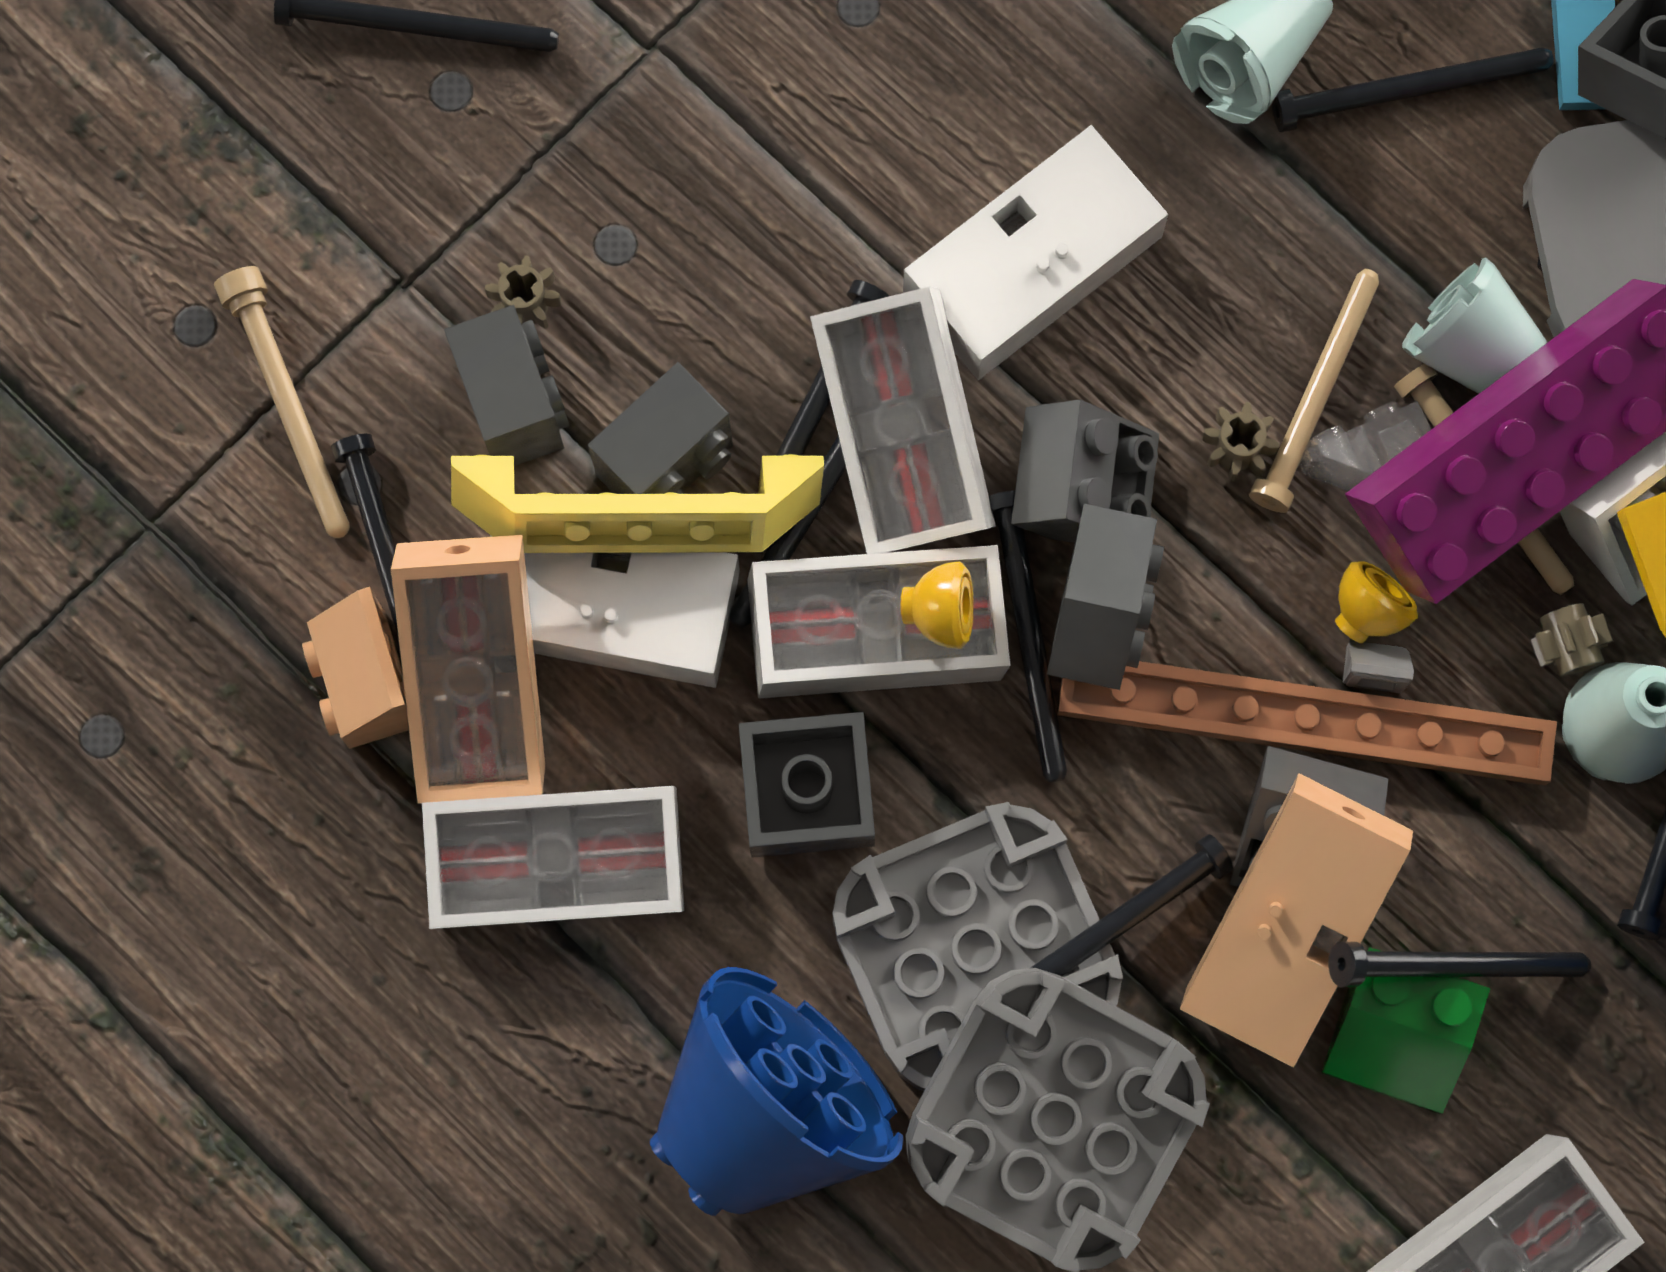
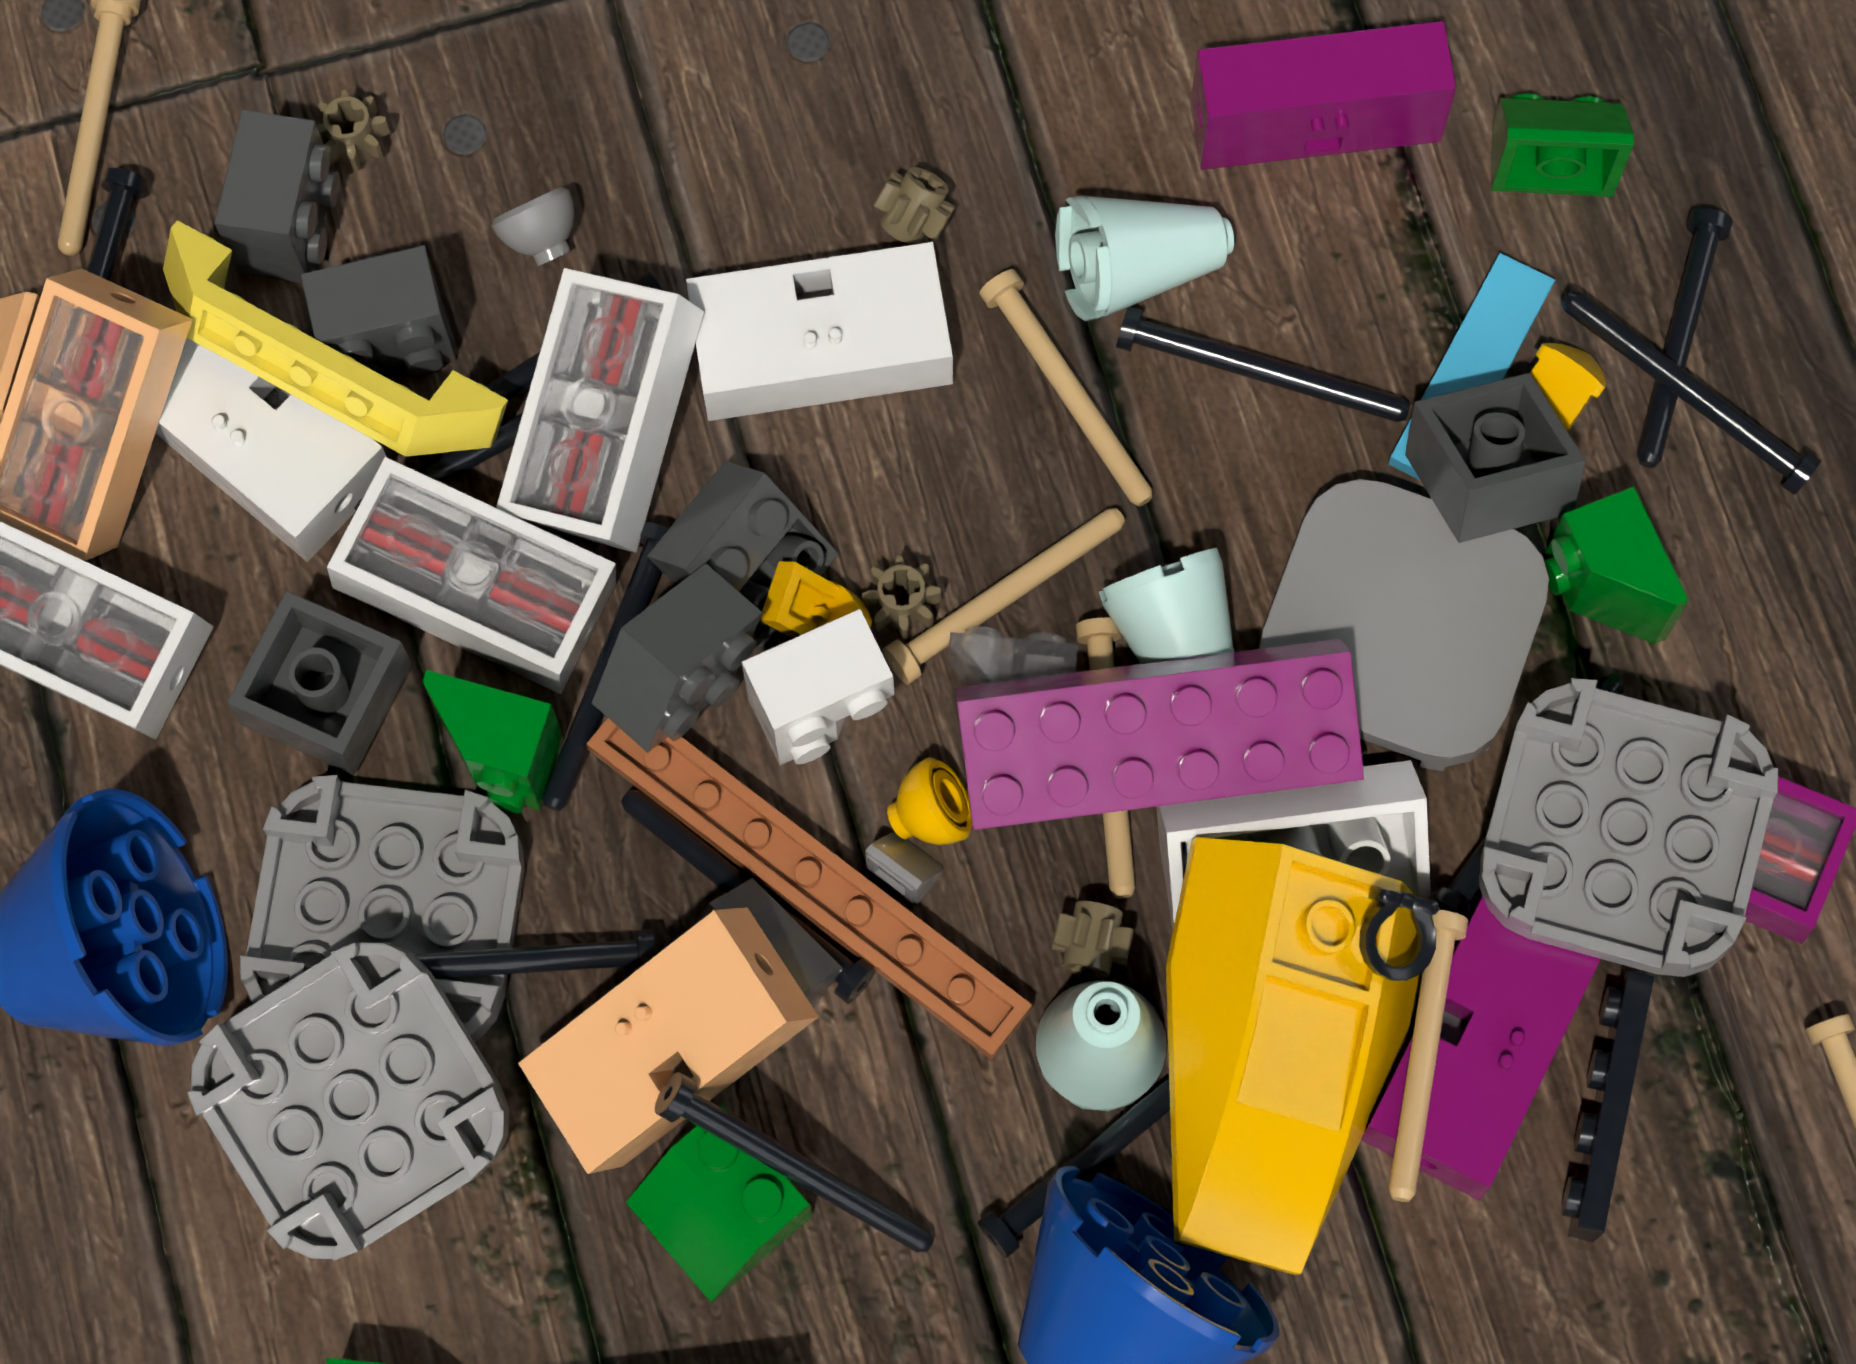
camera: 30 degrees right, 5 degrees down
(737, 290) = (538, 226): none -> light grey brick
(941, 605) = (524, 583): yellow brick -> none
(988, 750) = (501, 738): none -> green slope
(1046, 101) = (914, 205): none -> dark tan gear
(1179, 491) = (805, 601): none -> yellow tile
(1221, 565) = (814, 683): none -> white slope
(1237, 755) = (852, 978): none -> black bar
(1262, 187) = (1004, 292): none -> tan bar

